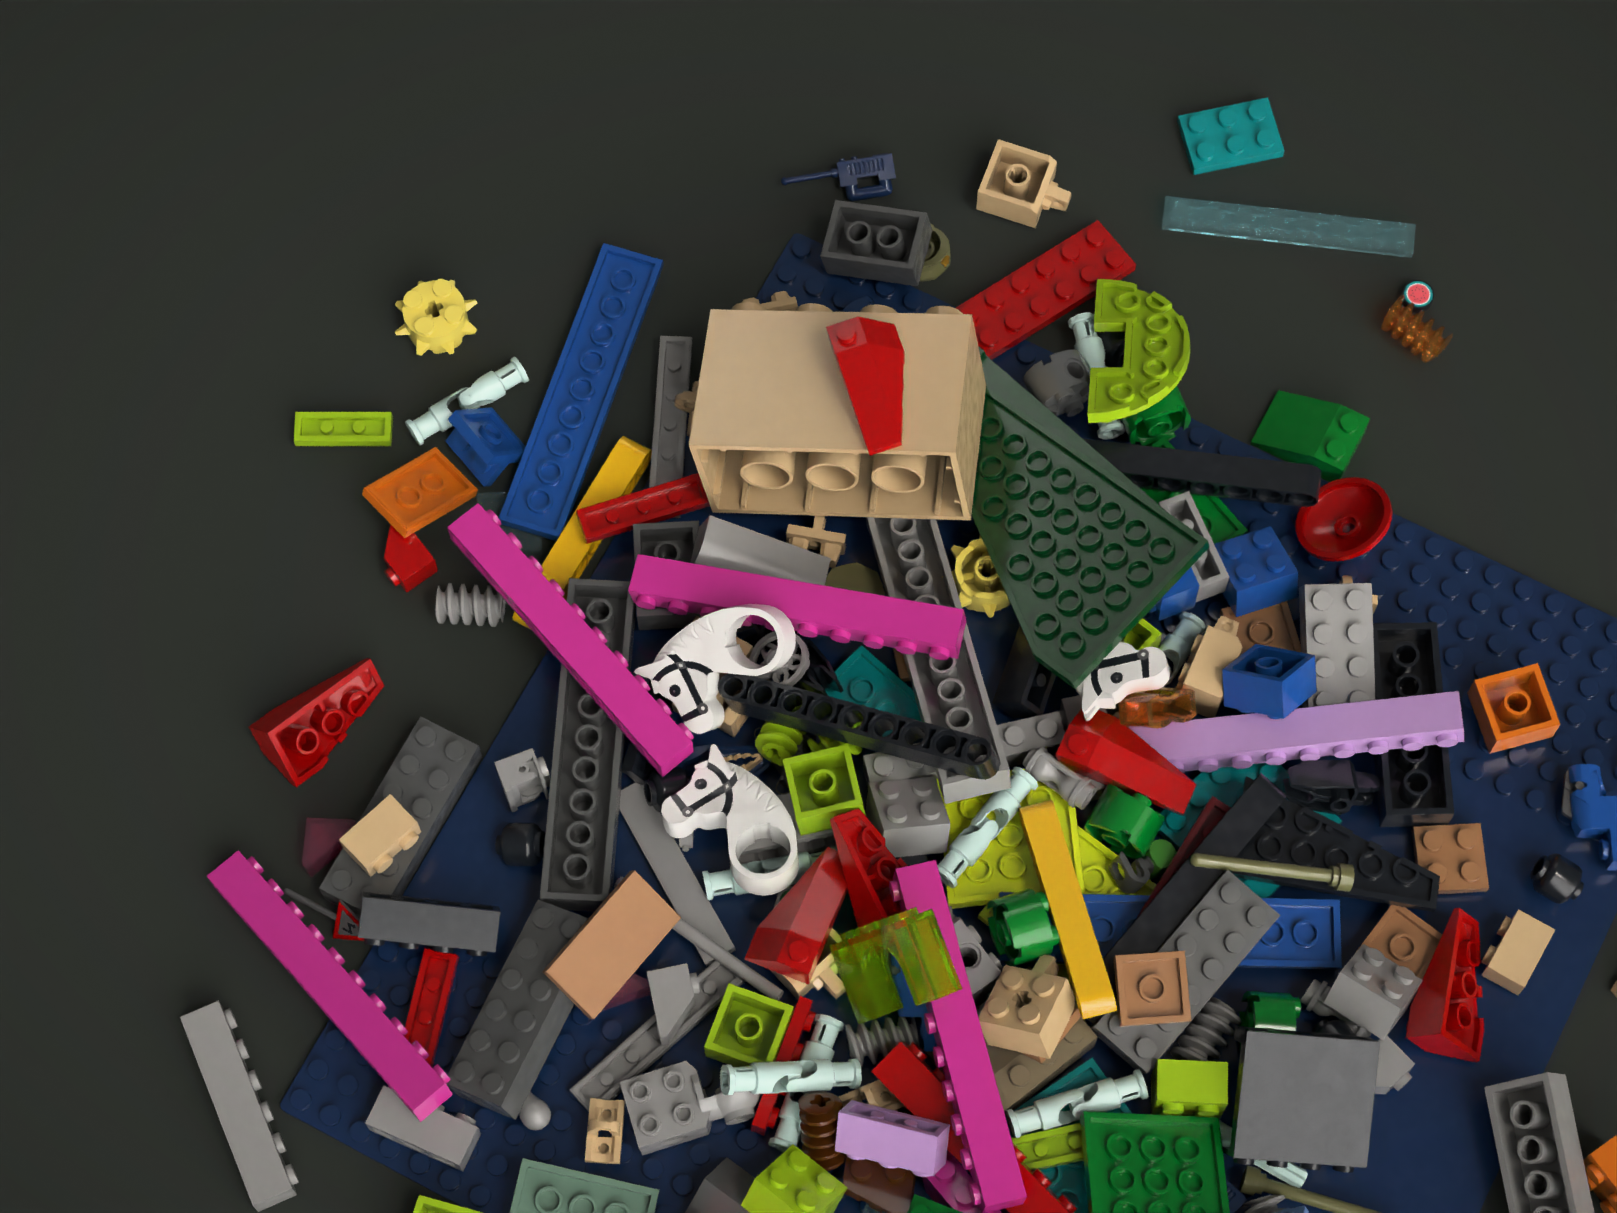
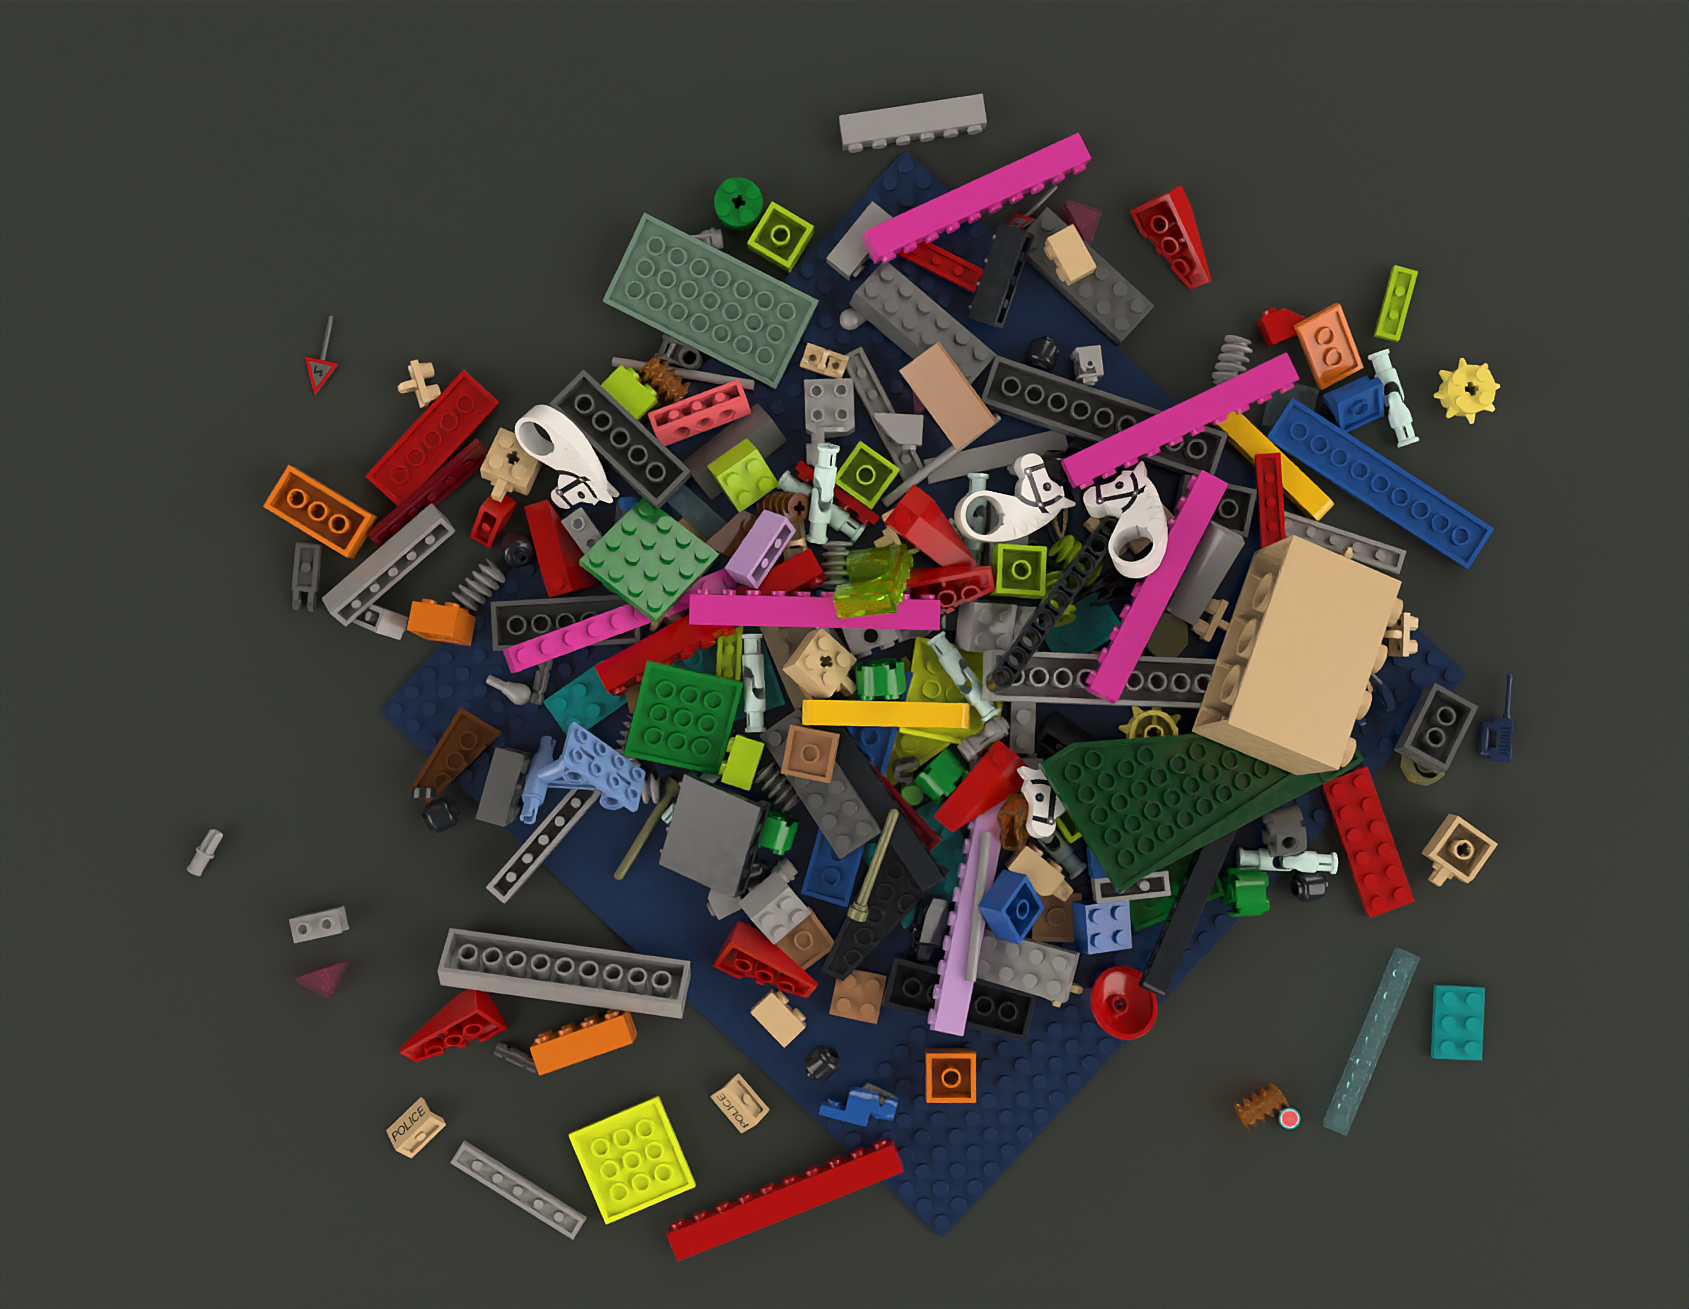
camera: 105 degrees right, 20 degrees up
(768, 656) = (1112, 578): light grey wheel -> none
(872, 372) = (1314, 682): red wedge -> none
(1153, 351) = (1290, 905): lime plate -> none
(1292, 719) = (977, 915): none -> light grey piece
(1311, 433) = (1200, 1002): green slope -> none

